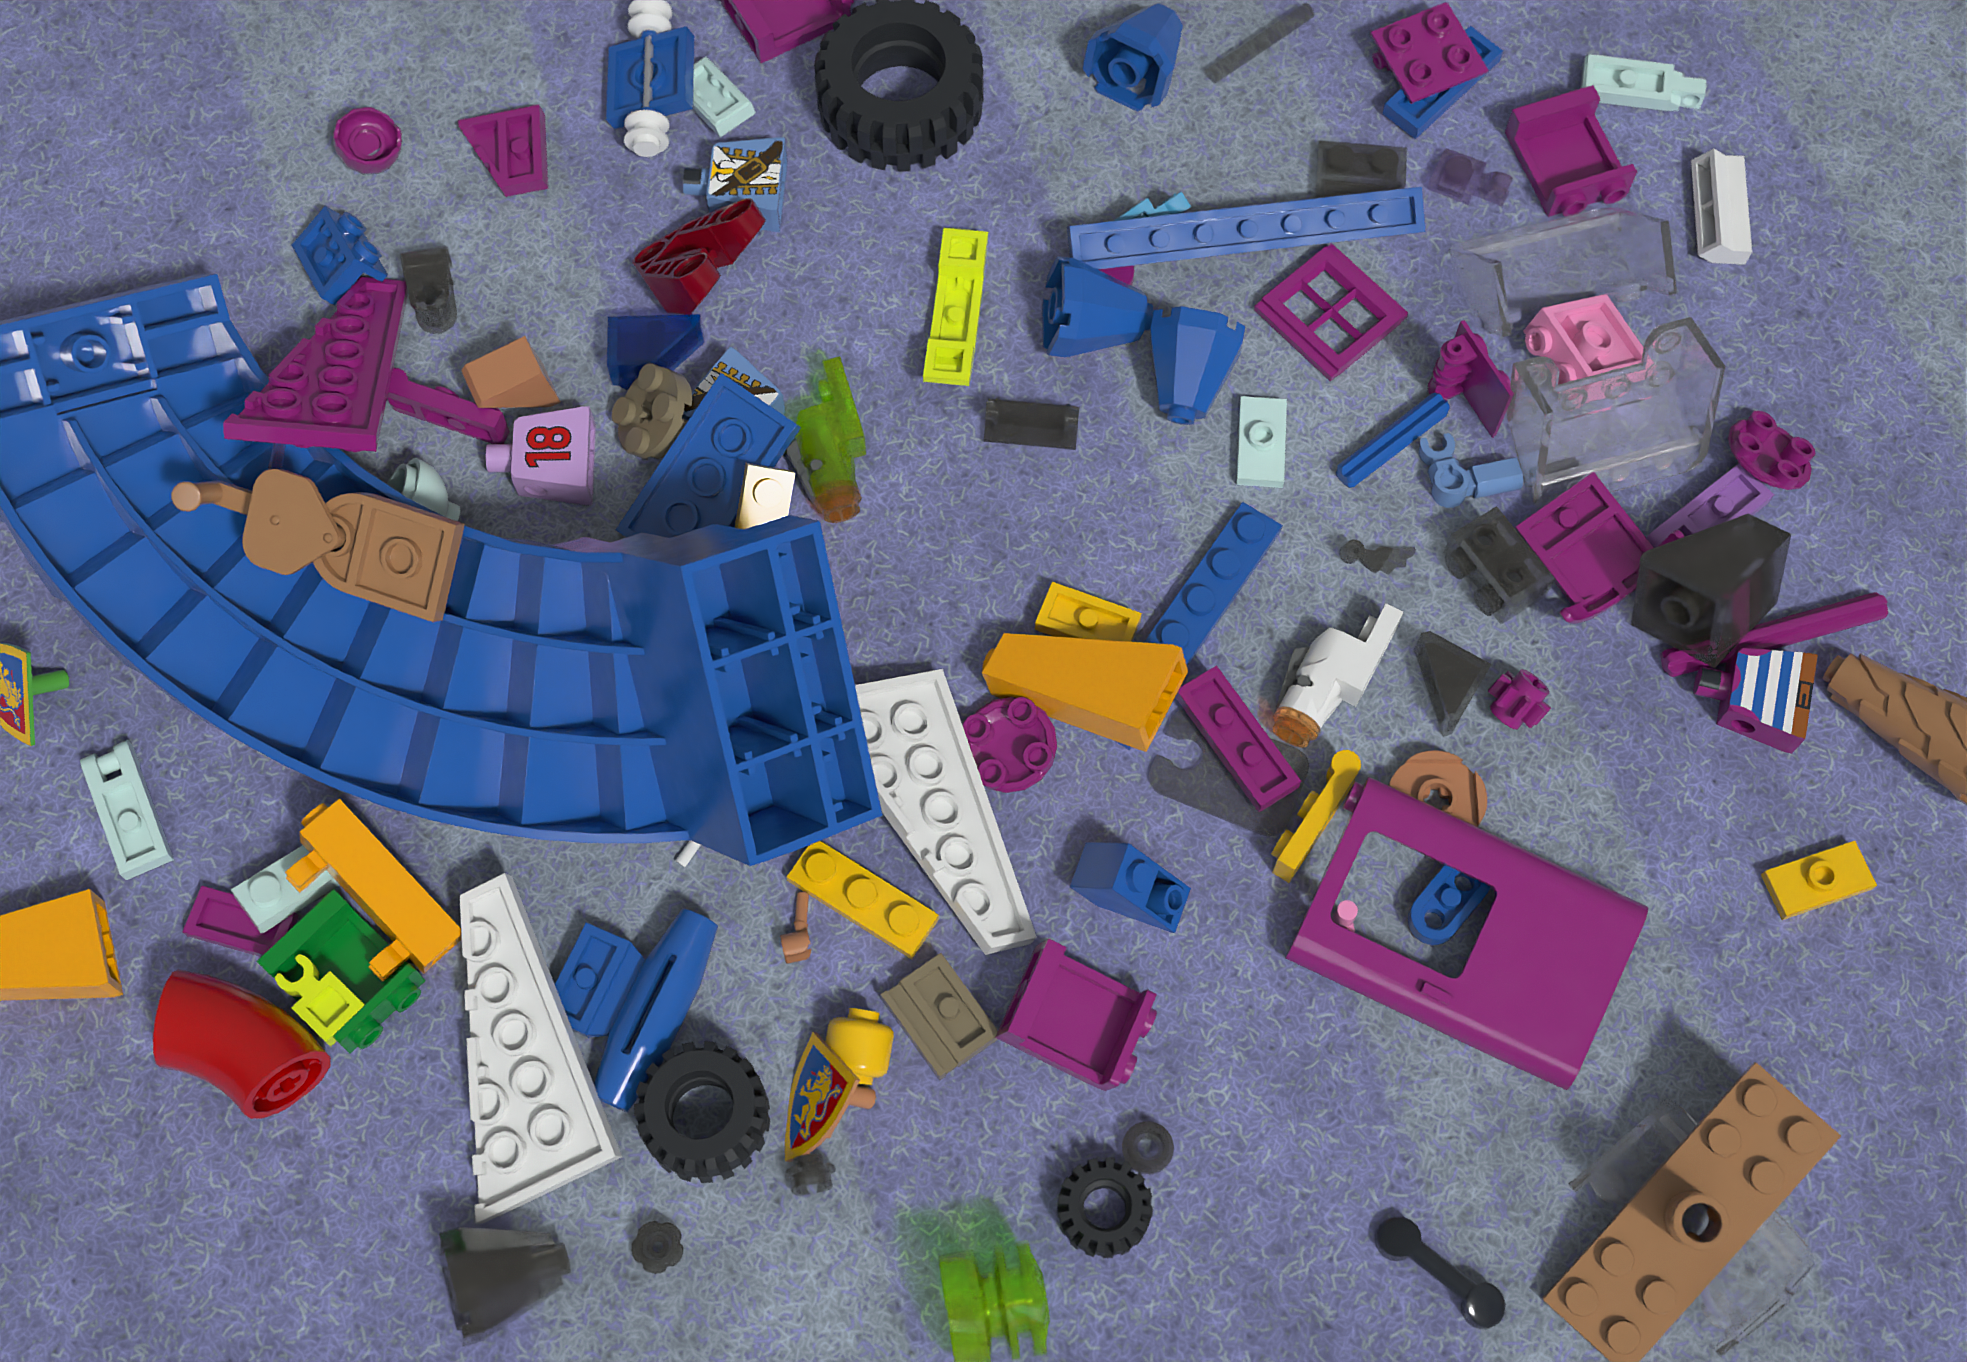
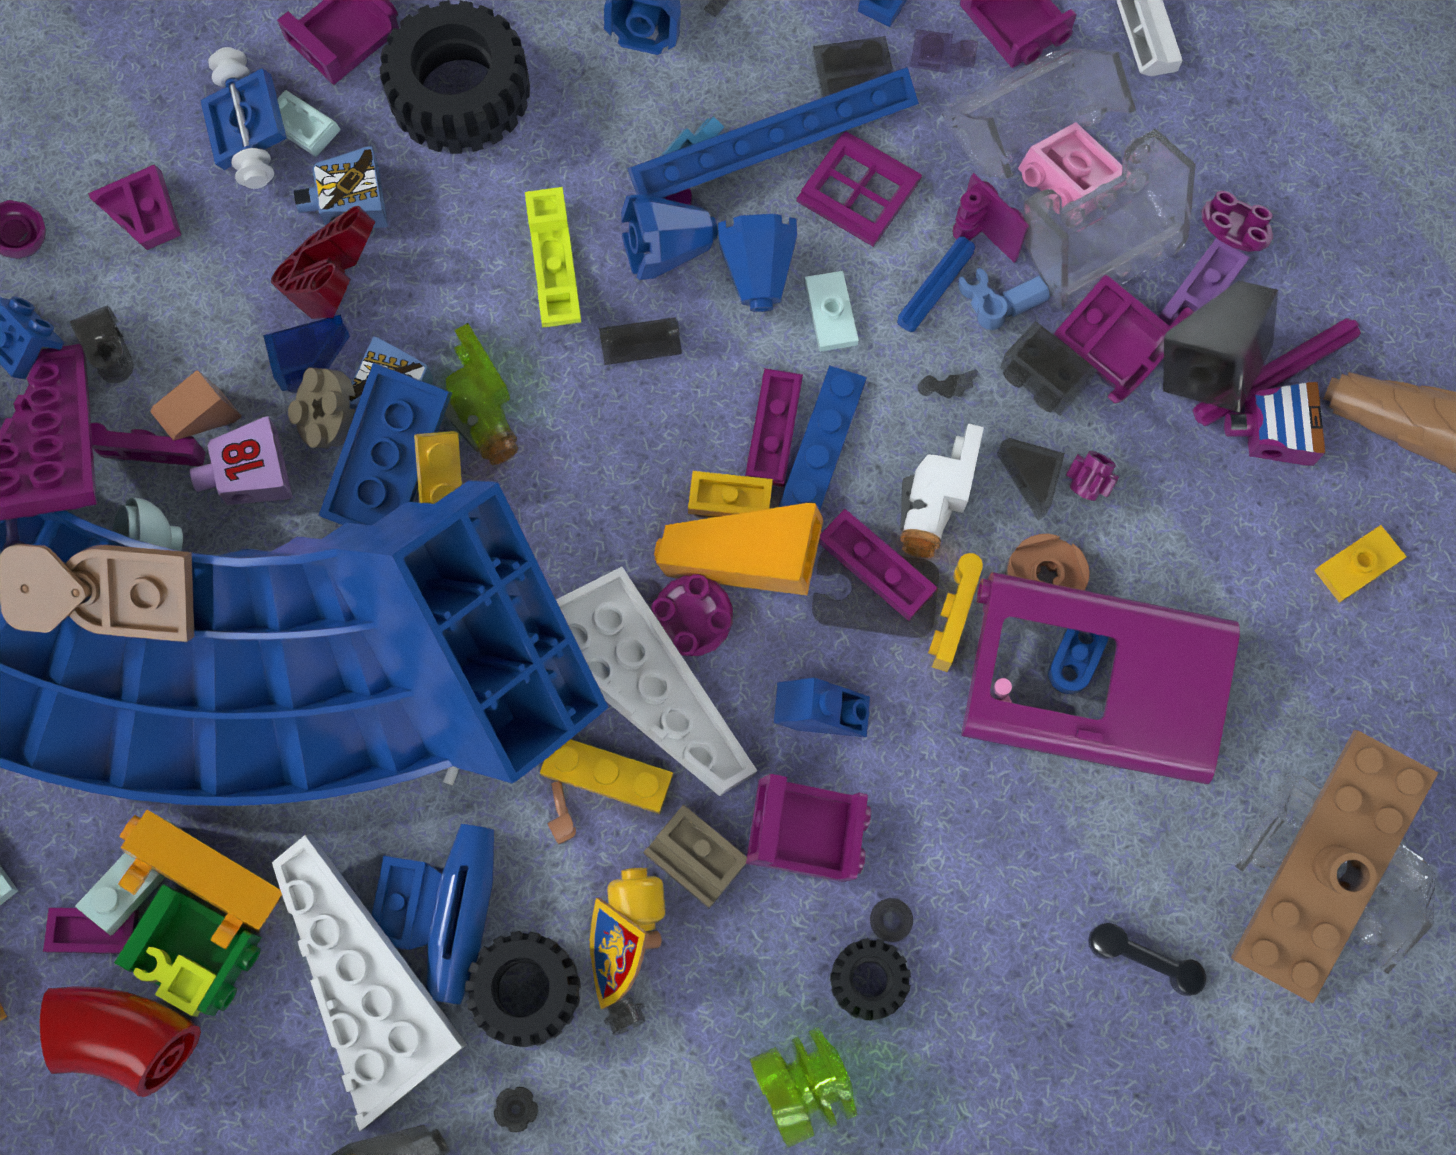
camera: 15 degrees left, 5 degrees up
(1161, 555) = (774, 426): none -> magenta tile

